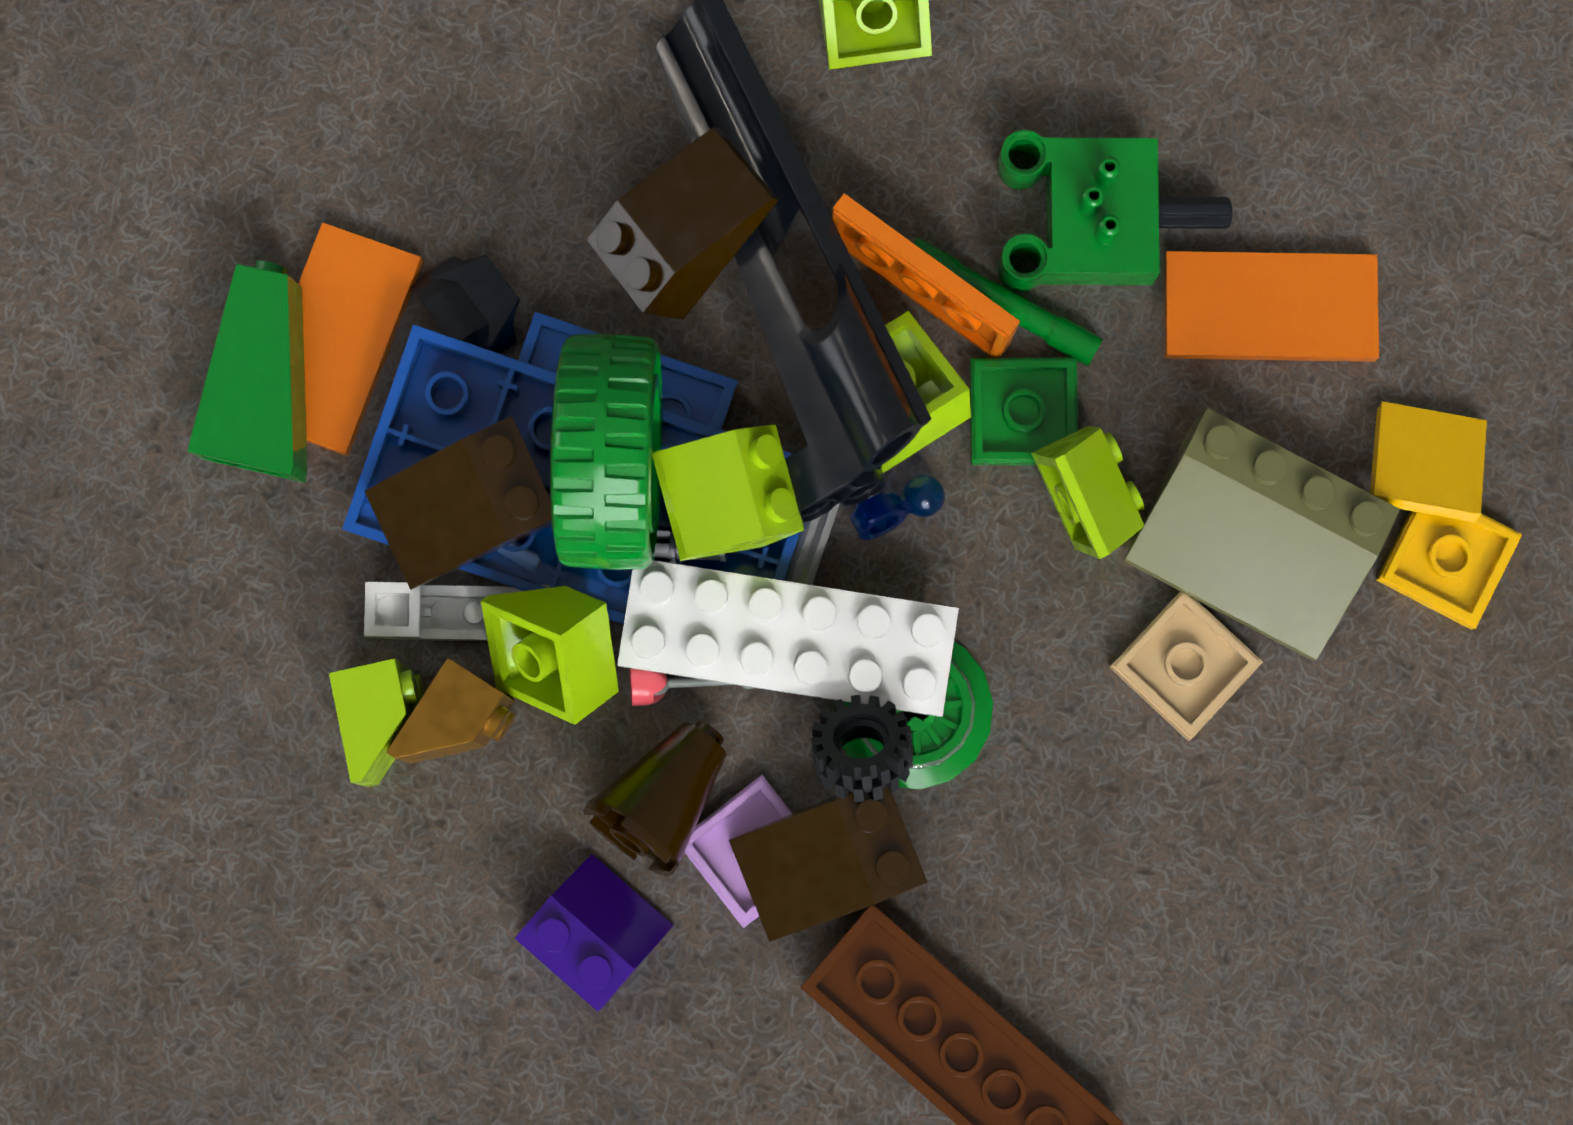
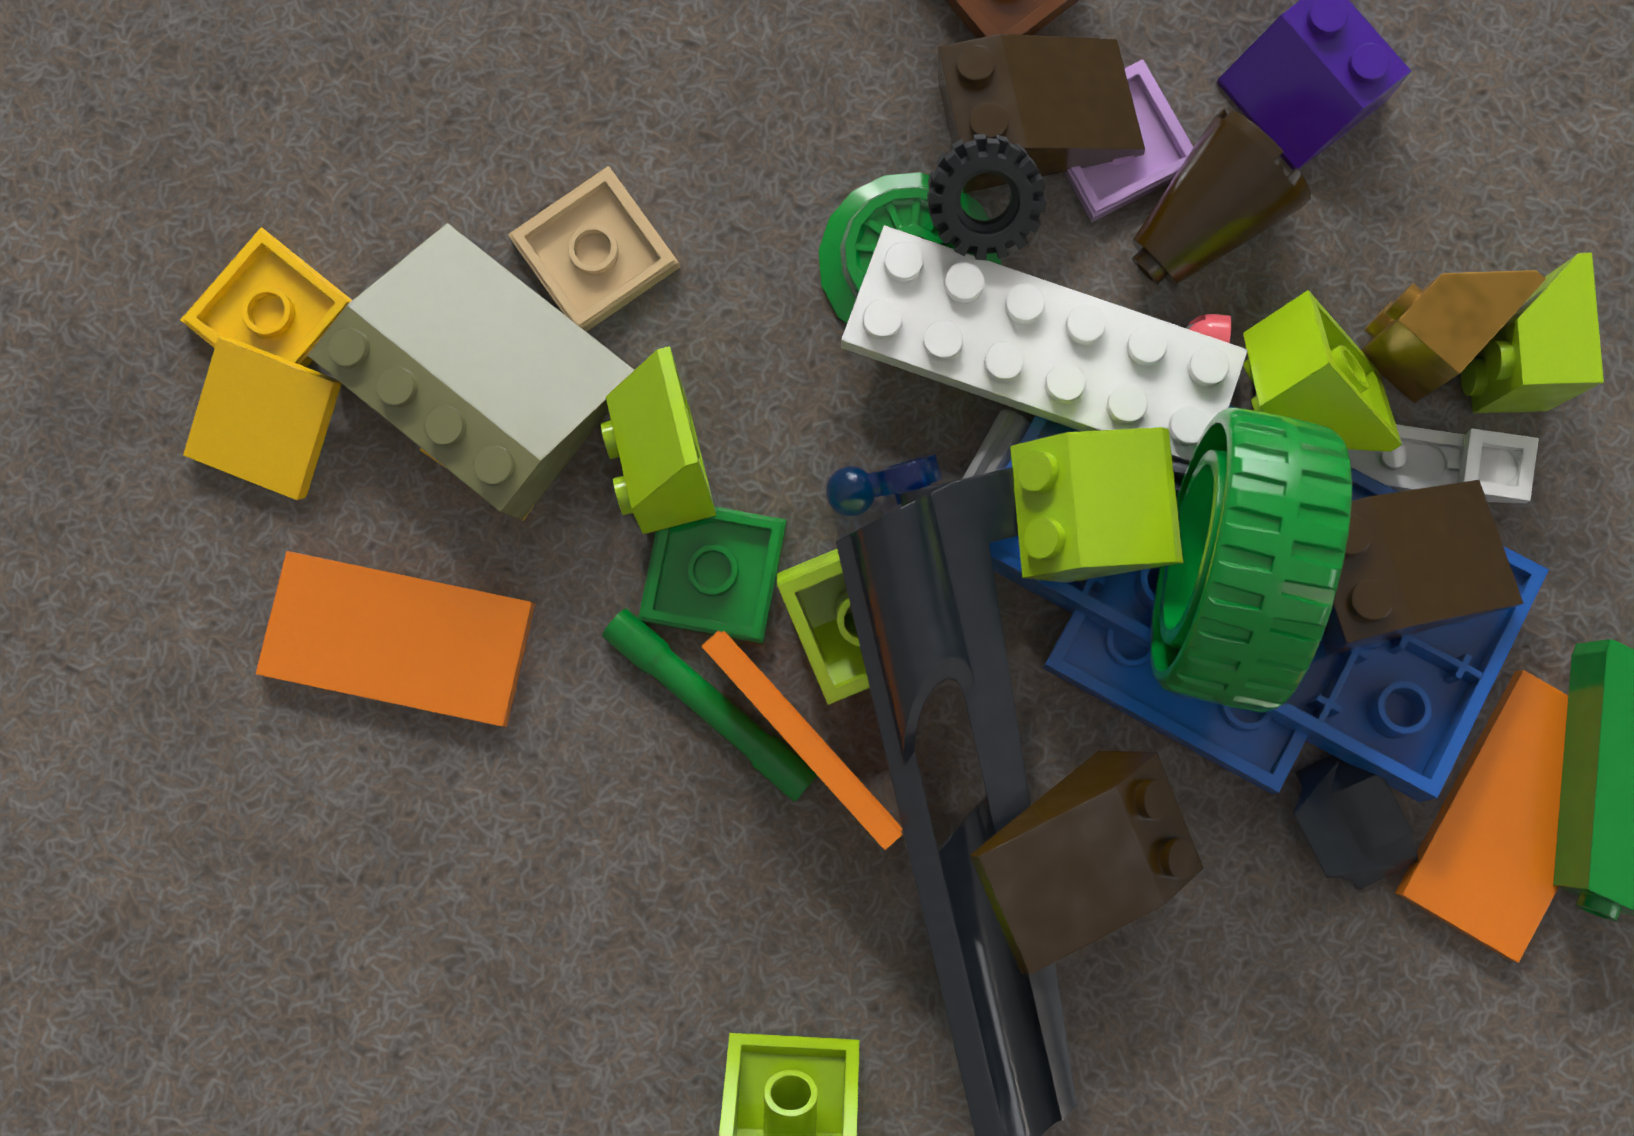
camera: 160 degrees left, 0 degrees up
(1098, 211) = (567, 789): green piece -> none

